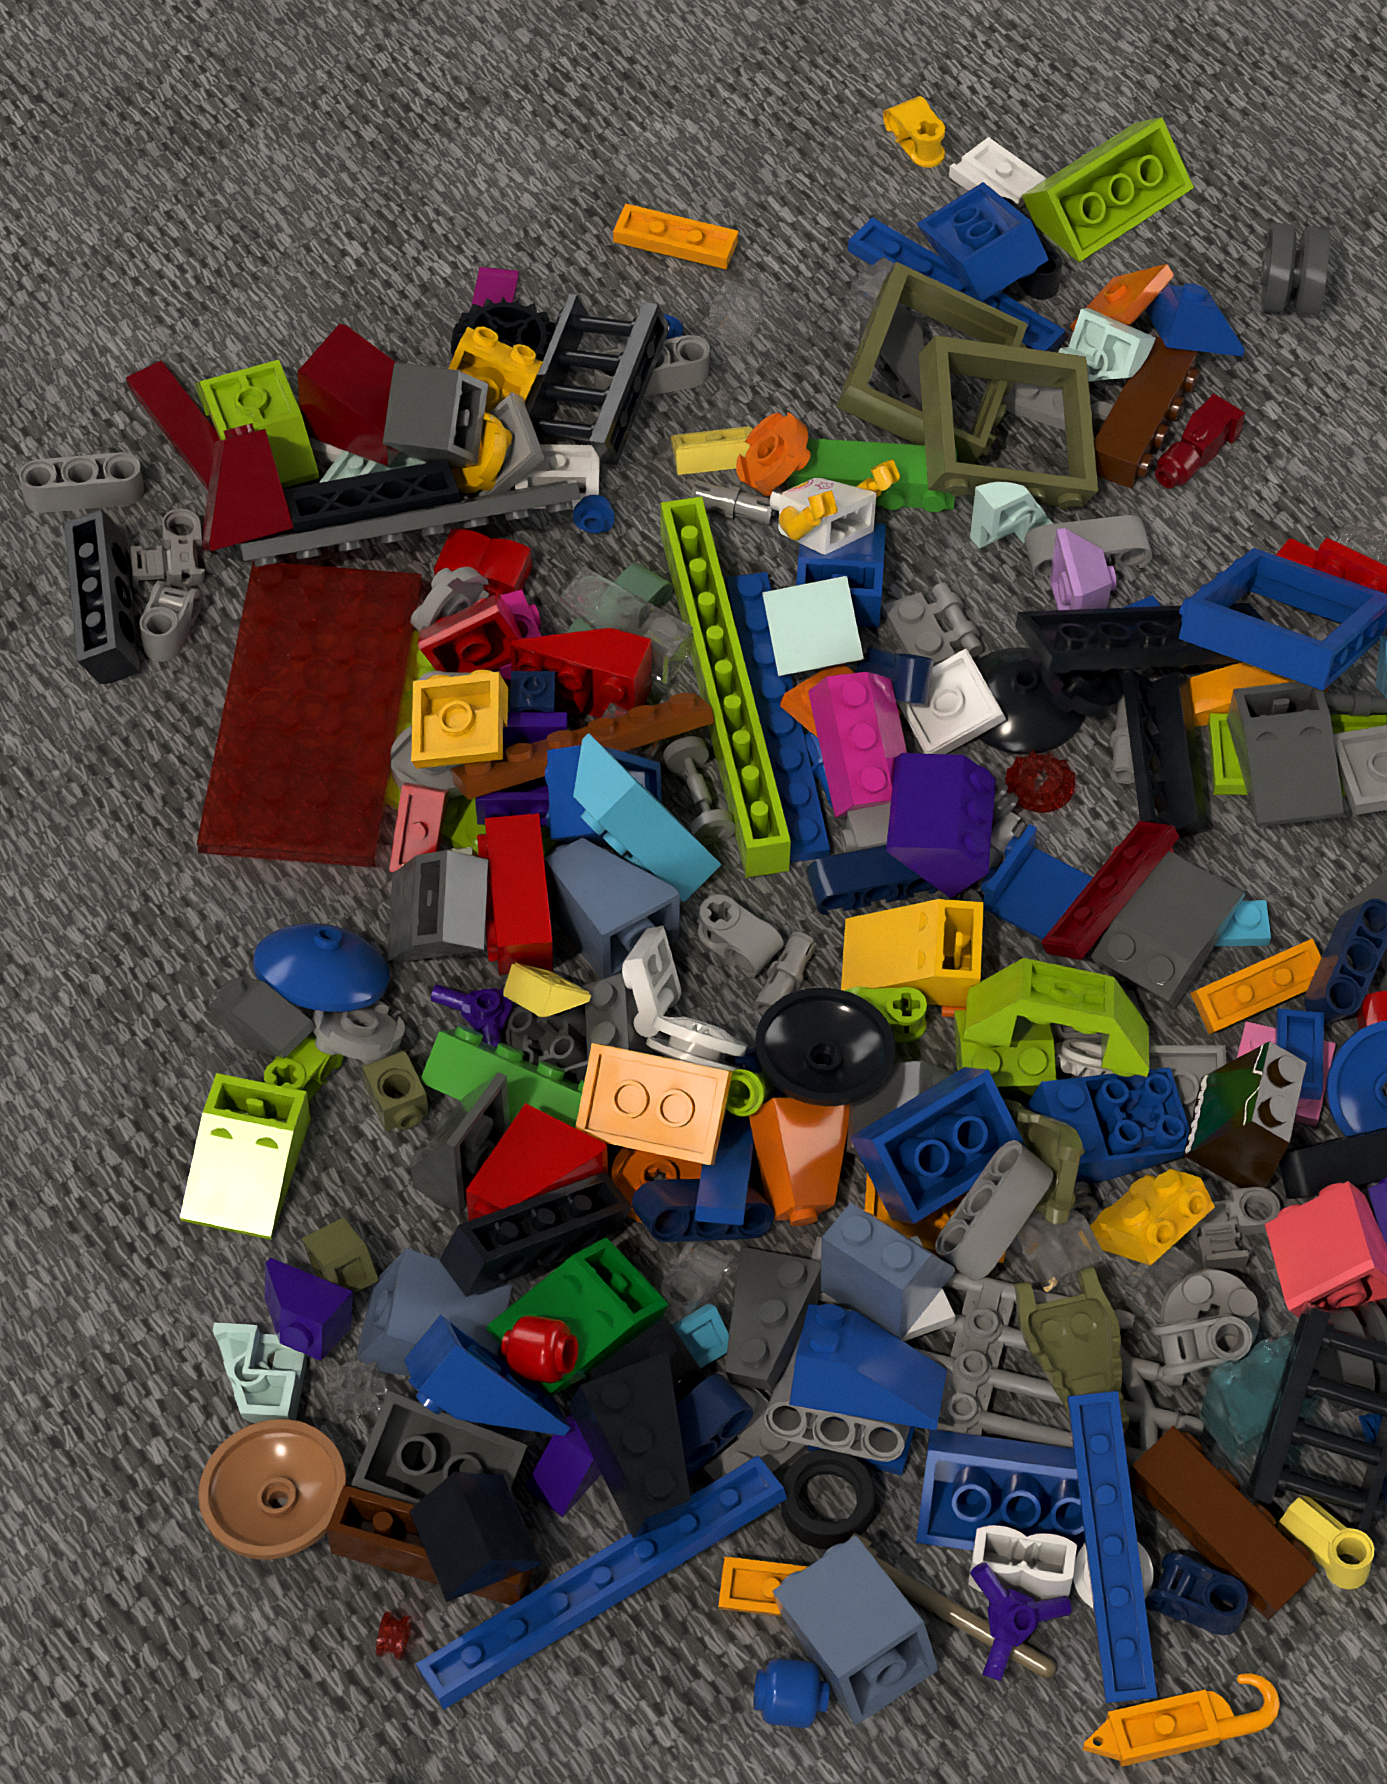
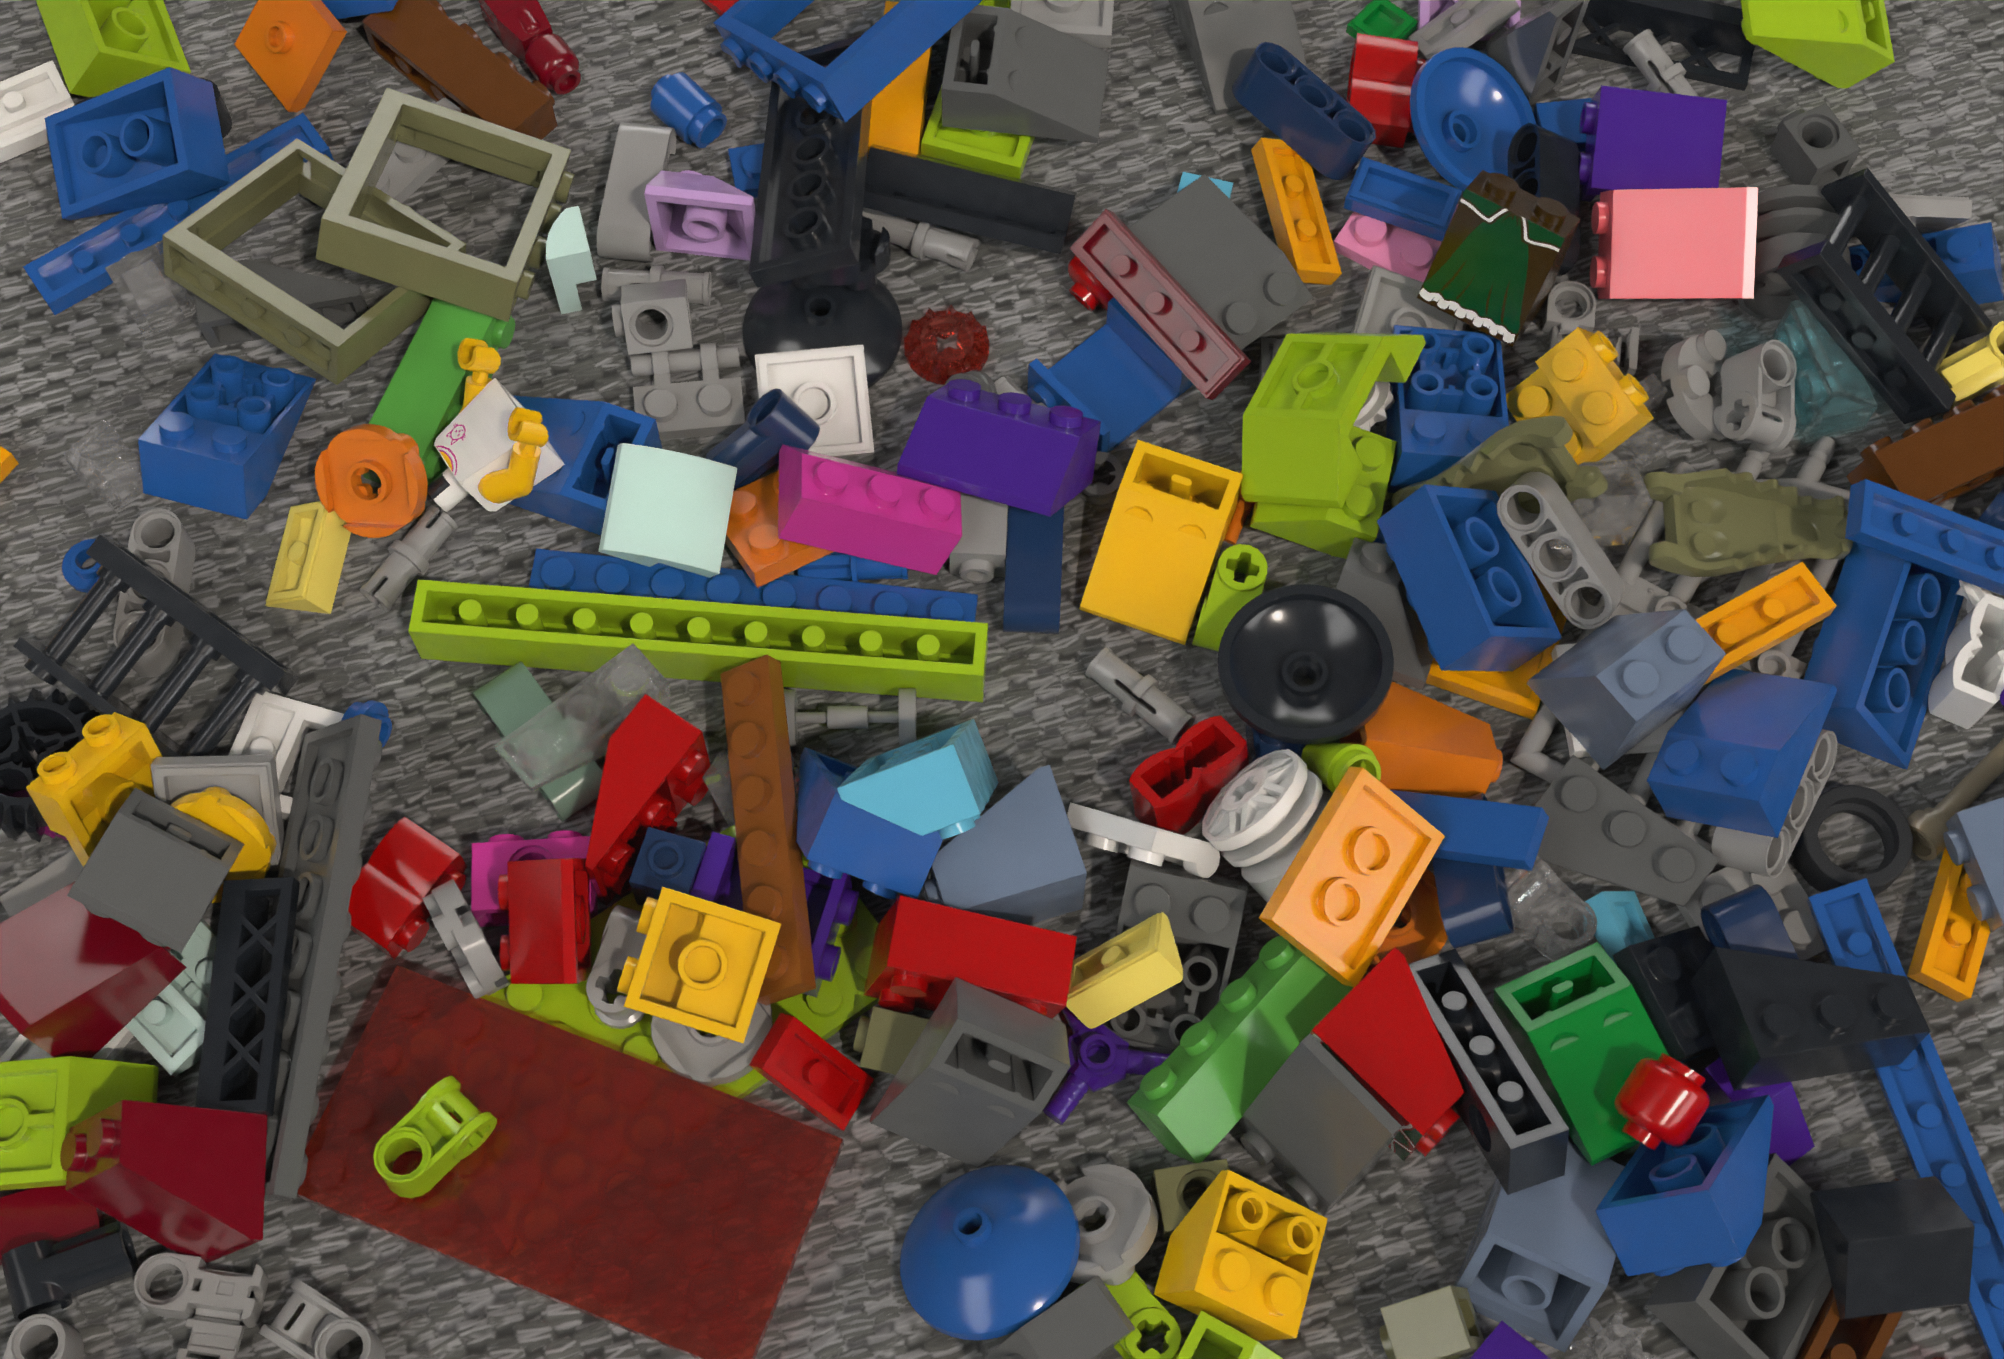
camera: 75 degrees left, 10 degrees up
(174, 471) = (56, 1271): none -> black piece
(304, 616) = (435, 1135): none -> lime piece
(355, 1117) = (1243, 1258): none -> yellow slope
(710, 997) = (1182, 781): none -> red brick
(738, 936) = (1081, 728): light grey piece -> none
(783, 367) = (223, 436): none -> blue slope
(980, 585) = (665, 296): none -> light grey brick
(982, 1369) = (1766, 616): none -> light orange plate
(1012, 581) = (698, 284): none -> light grey pin
(1109, 346) = (357, 71): light aqua slope -> none
(1175, 559) = (688, 109): none -> blue brick

